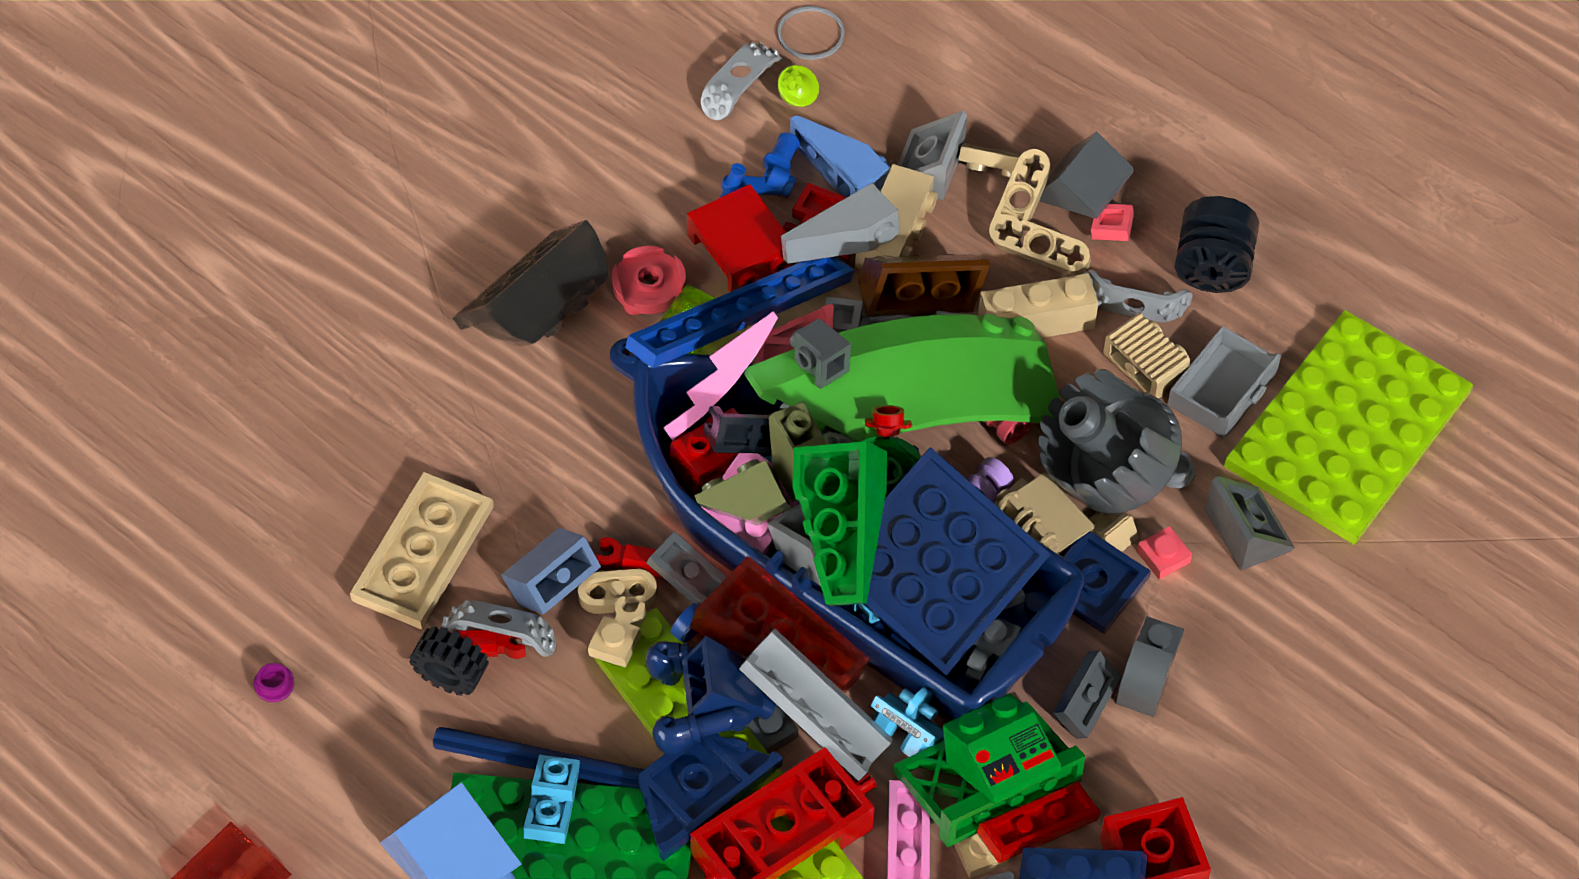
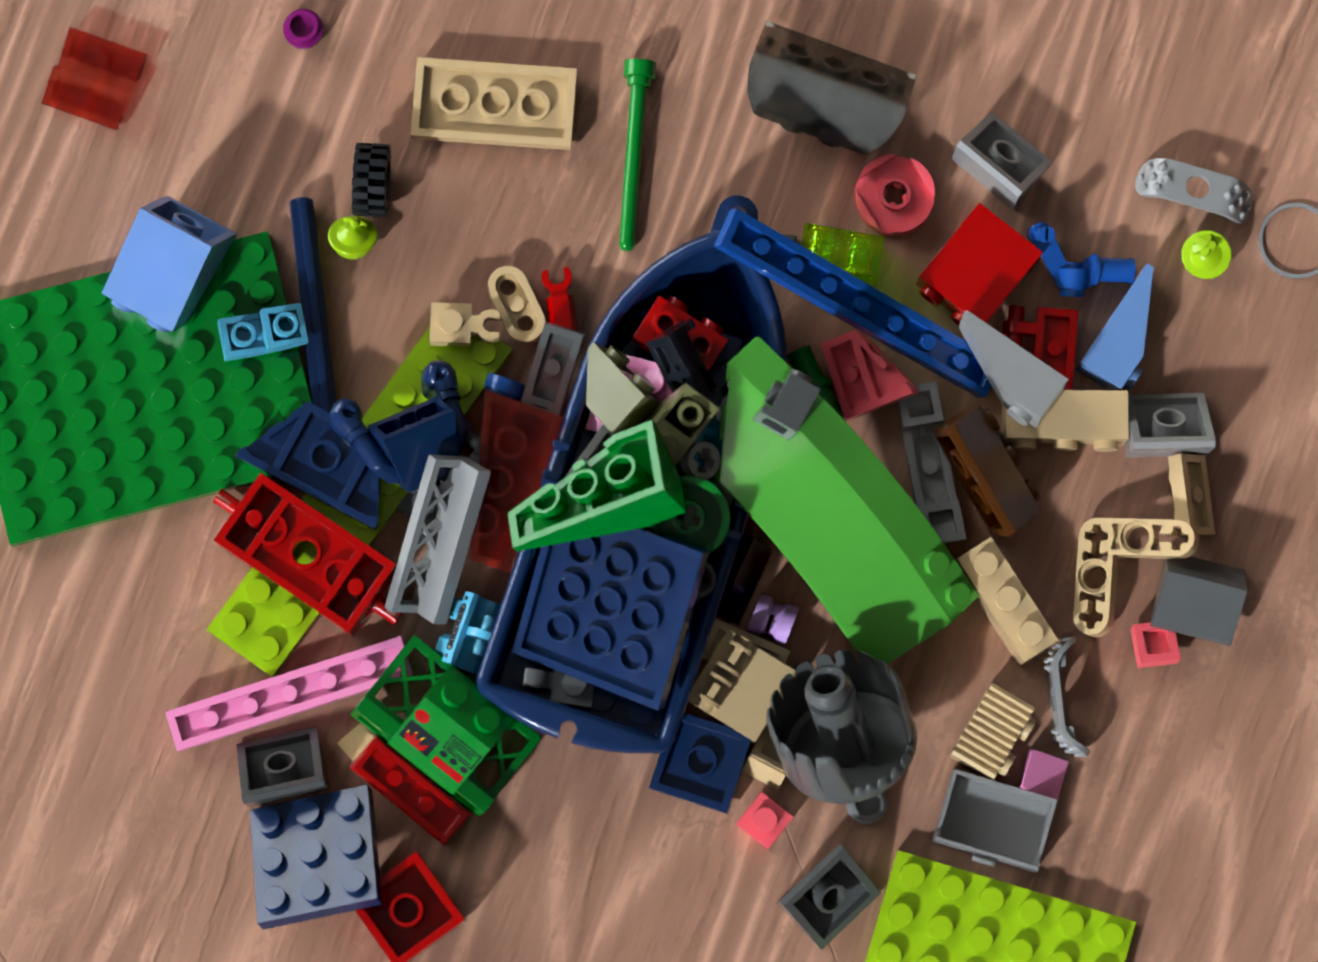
camera: 70 degrees right, 25 degrees up
(452, 430) = (639, 77): none -> green piece
(493, 702) = (352, 236): none -> lime hat
(494, 643) = (416, 205): red bar -> none
(524, 625) = (439, 236): light grey piece -> none
(551, 570) = (507, 234): sand blue brick -> none
(656, 200) = (1001, 160): none -> light grey slope
(731, 363) = (752, 316): bright pink slope -> none
(888, 420) = (742, 499): red plate -> none
(1087, 694) = (565, 794): dark grey plate -> none
(1149, 666) = (617, 844): dark grey brick -> none
(1192, 336) = (1043, 774): none -> bright pink slope
(1217, 244) = (1154, 763): black wheel -> none

